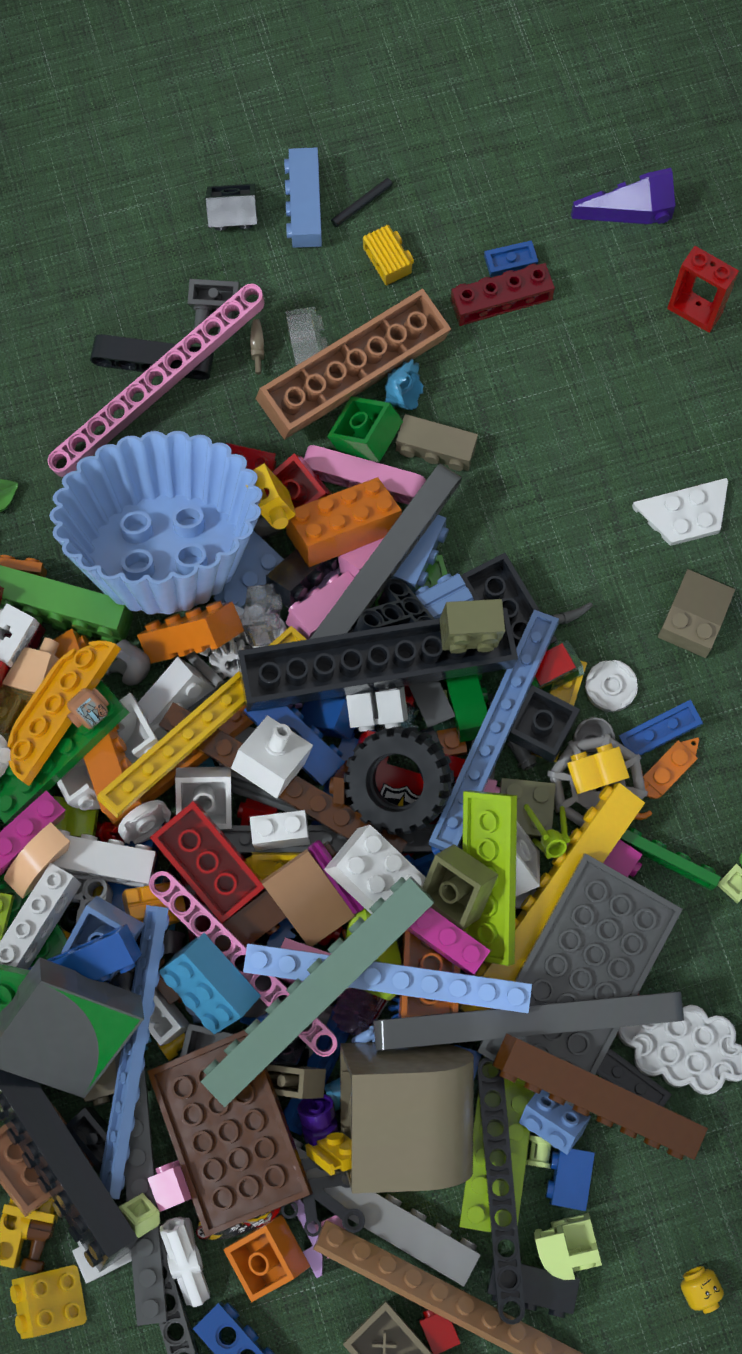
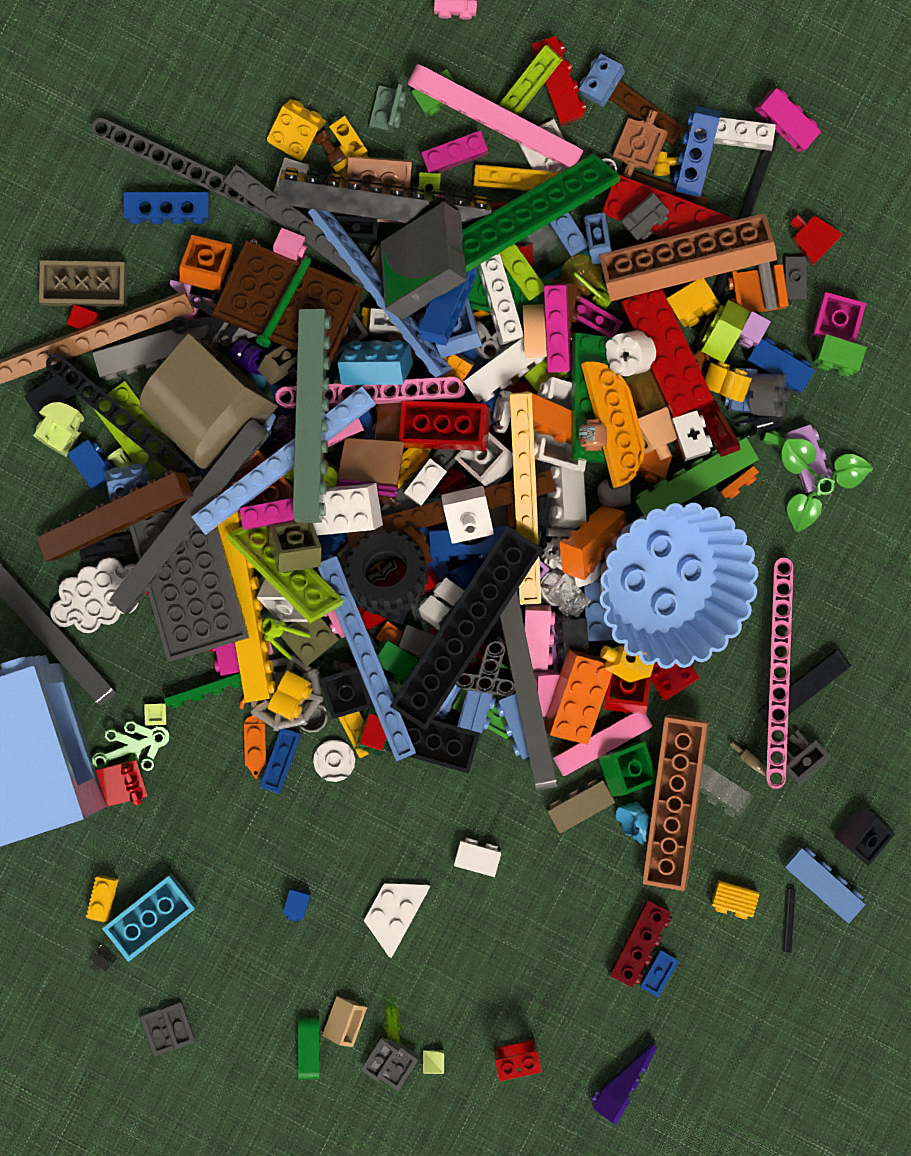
camera: 130 degrees right, 15 degrees up
(141, 1214) = (289, 216): yellowish green slope -> none
(185, 1260) = (246, 220): white piece -> none
(287, 1115) = (263, 339): none -> green bar
(331, 1153) = (223, 346): yellow plate -> none
(472, 625) = (429, 694): olive brick -> none
(568, 485) = (477, 857): none -> white brick
(569, 616) = (399, 776): dark grey helmet -> none
(696, 613) = (328, 855): dark tan slope -> none

